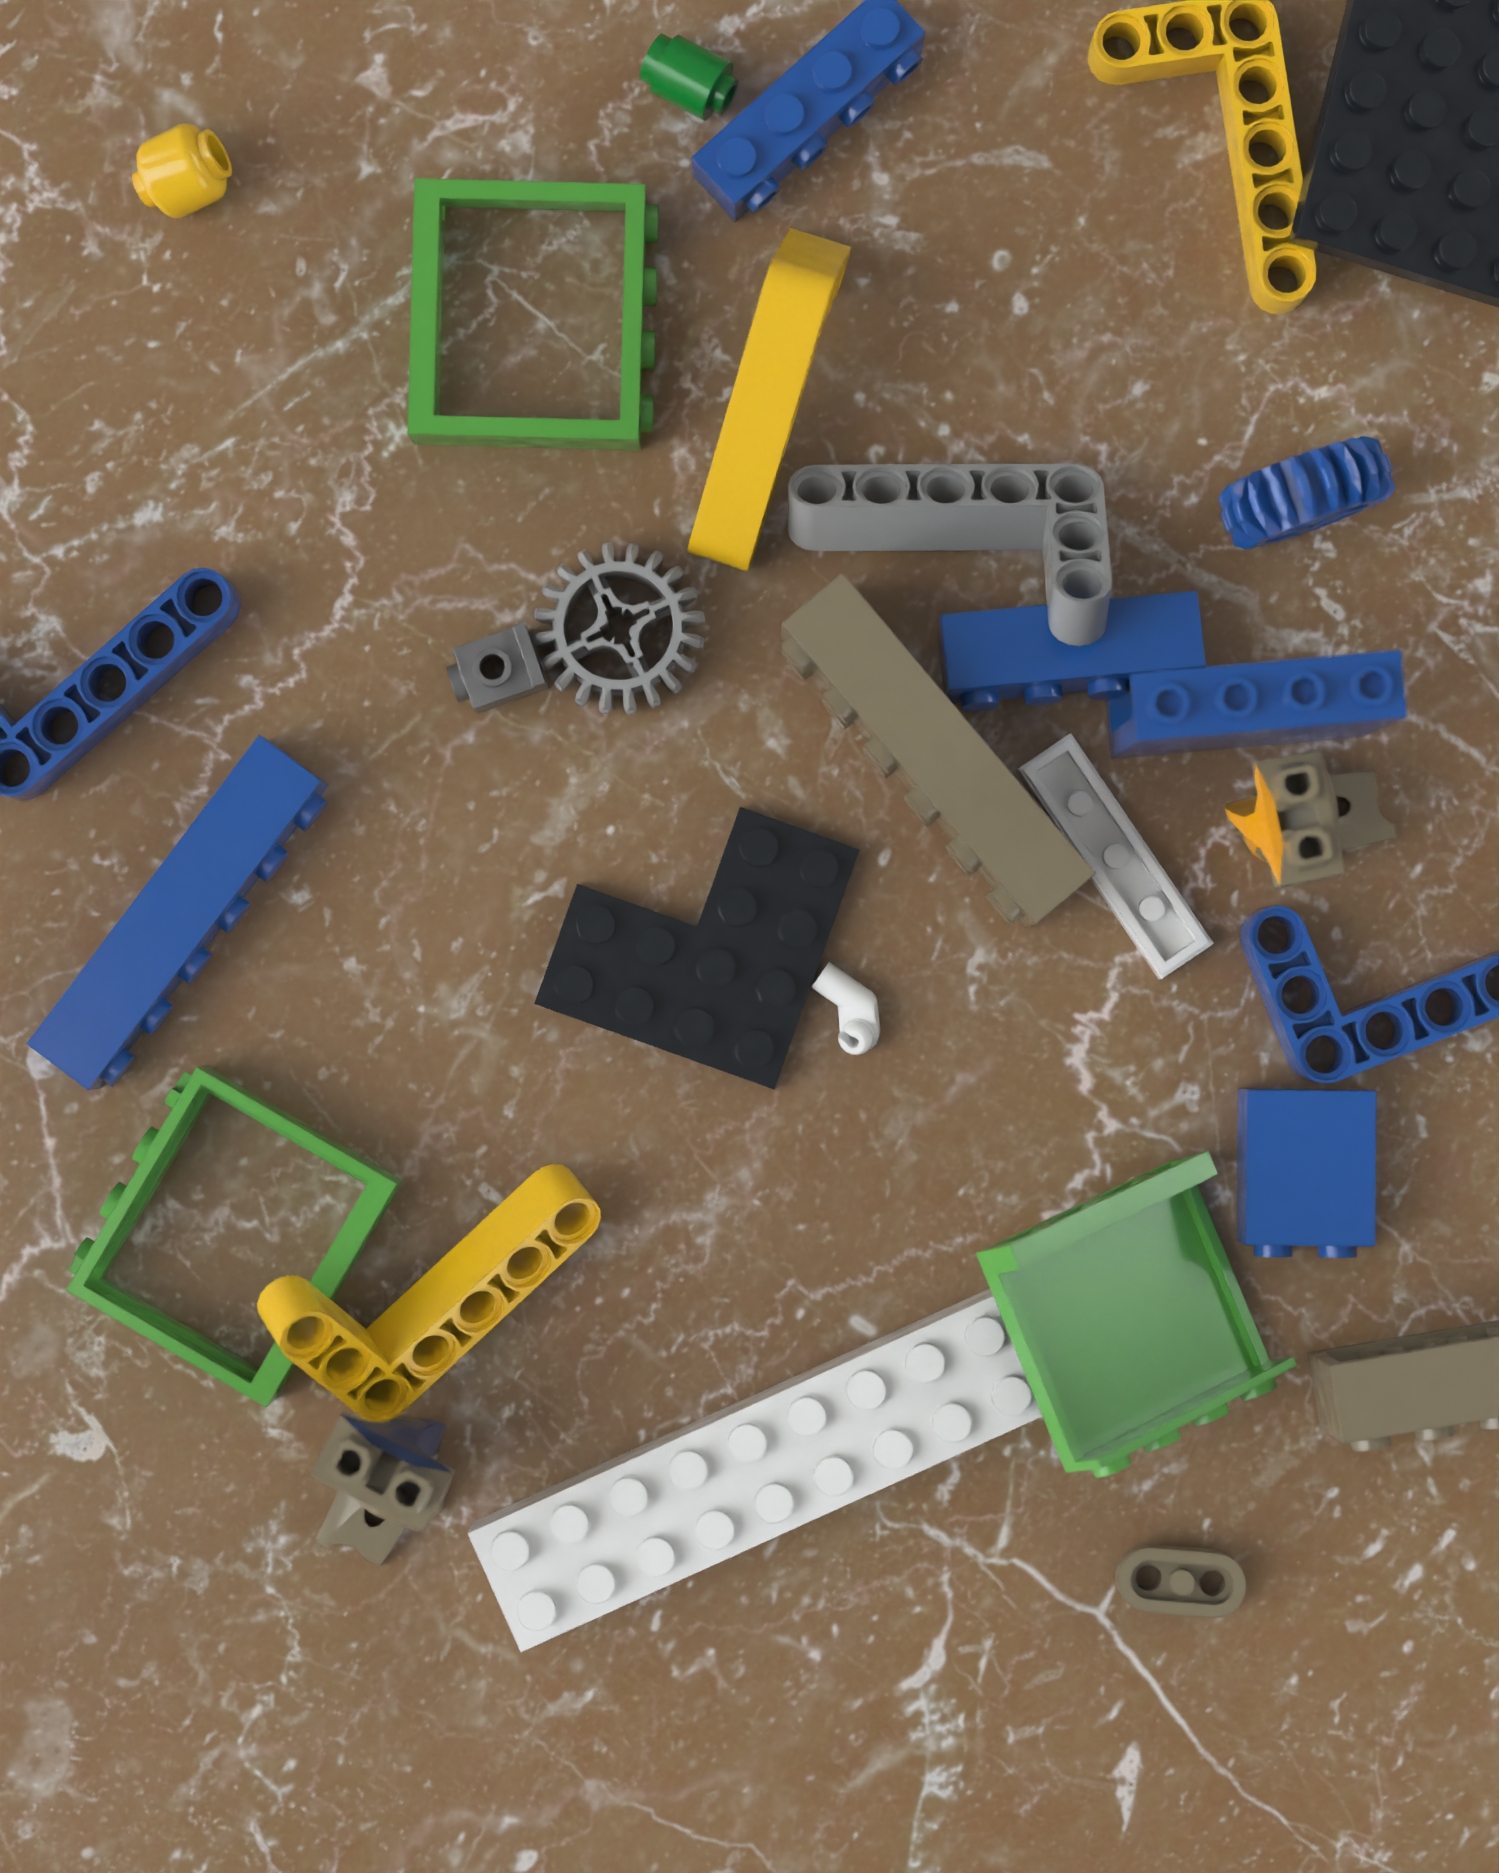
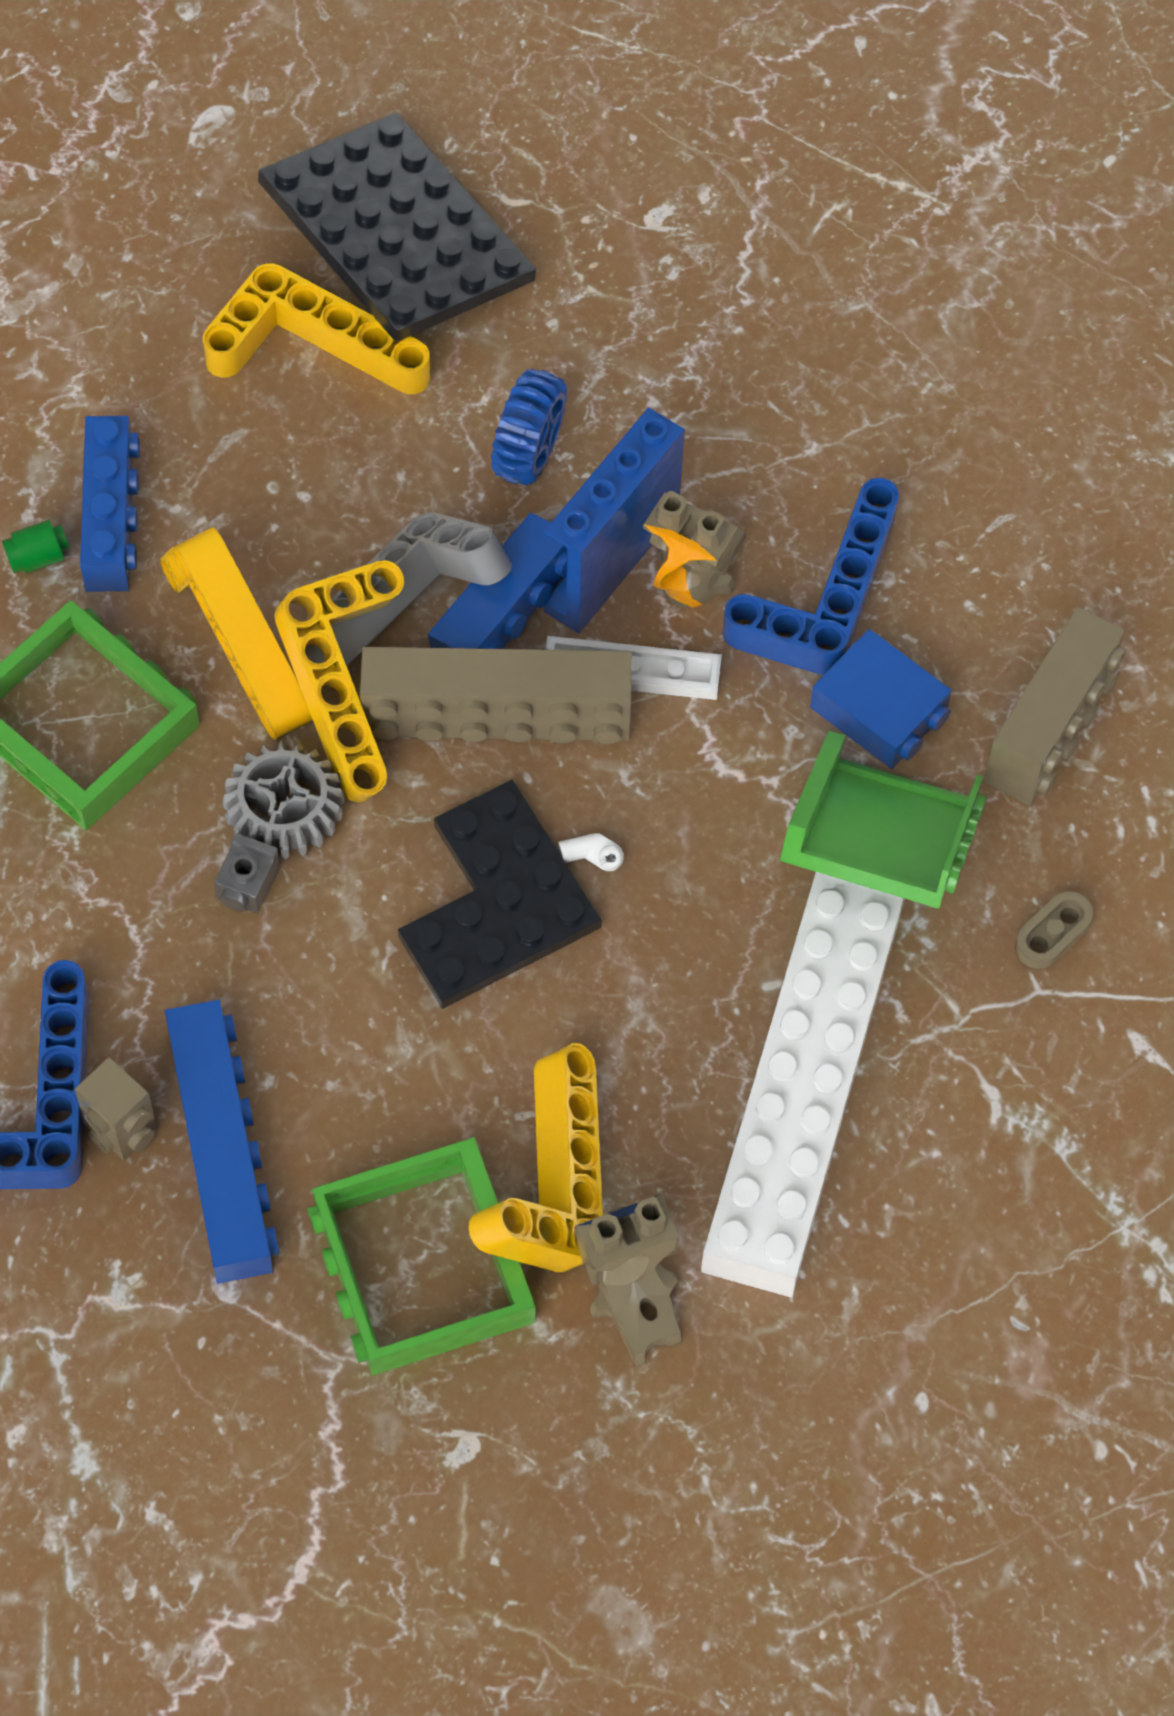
camera: 55 degrees left, 25 degrees down
(104, 789) = (116, 1110): none -> dark tan brick
(793, 554) = (333, 670): none -> yellow beam

